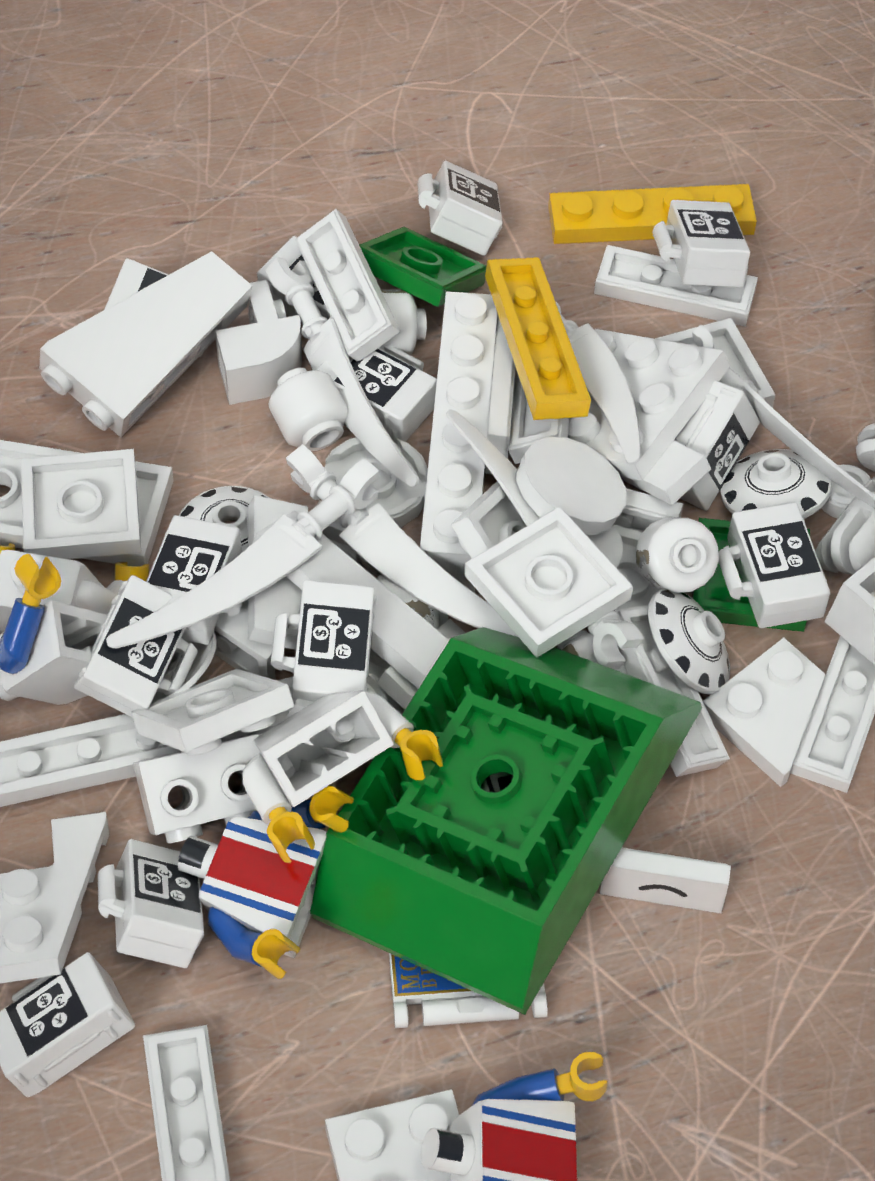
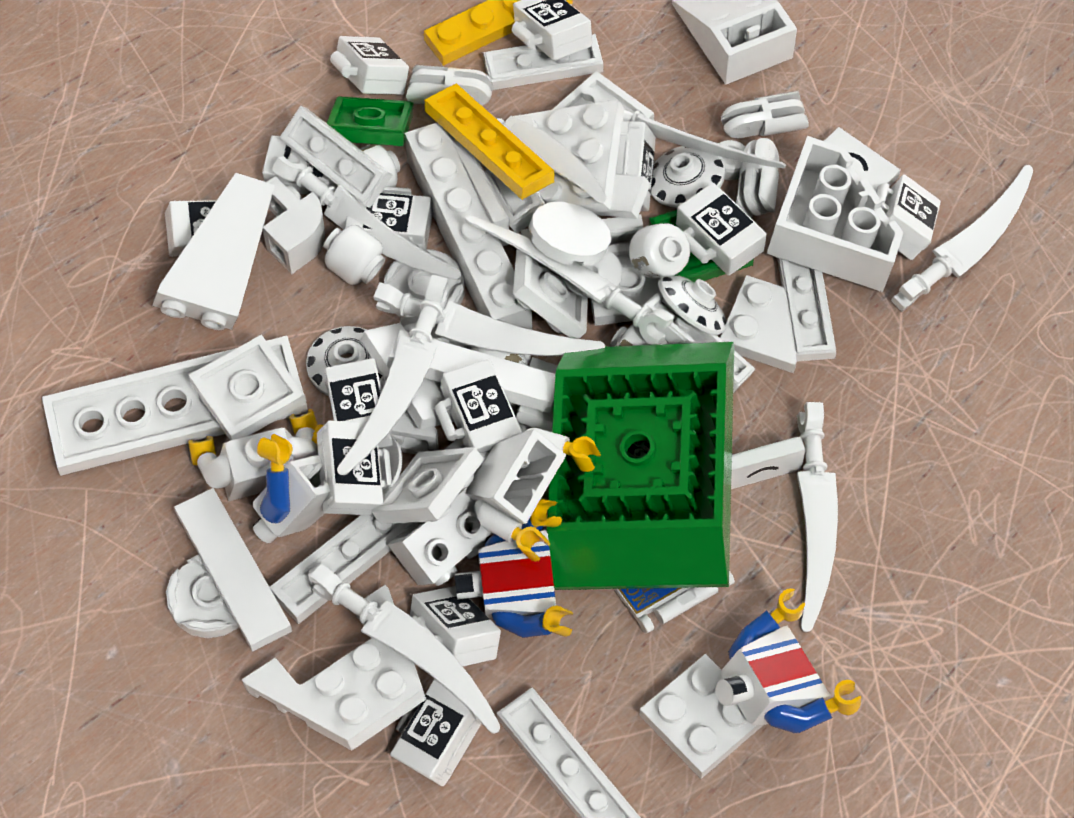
camera: 25 degrees left, 5 degrees up
(82, 892) = (408, 638): none -> white sword
(548, 581) = (596, 305): white tile -> none
(566, 273) = (432, 79): none -> white arm
(710, 984) = (820, 512): none -> white sword

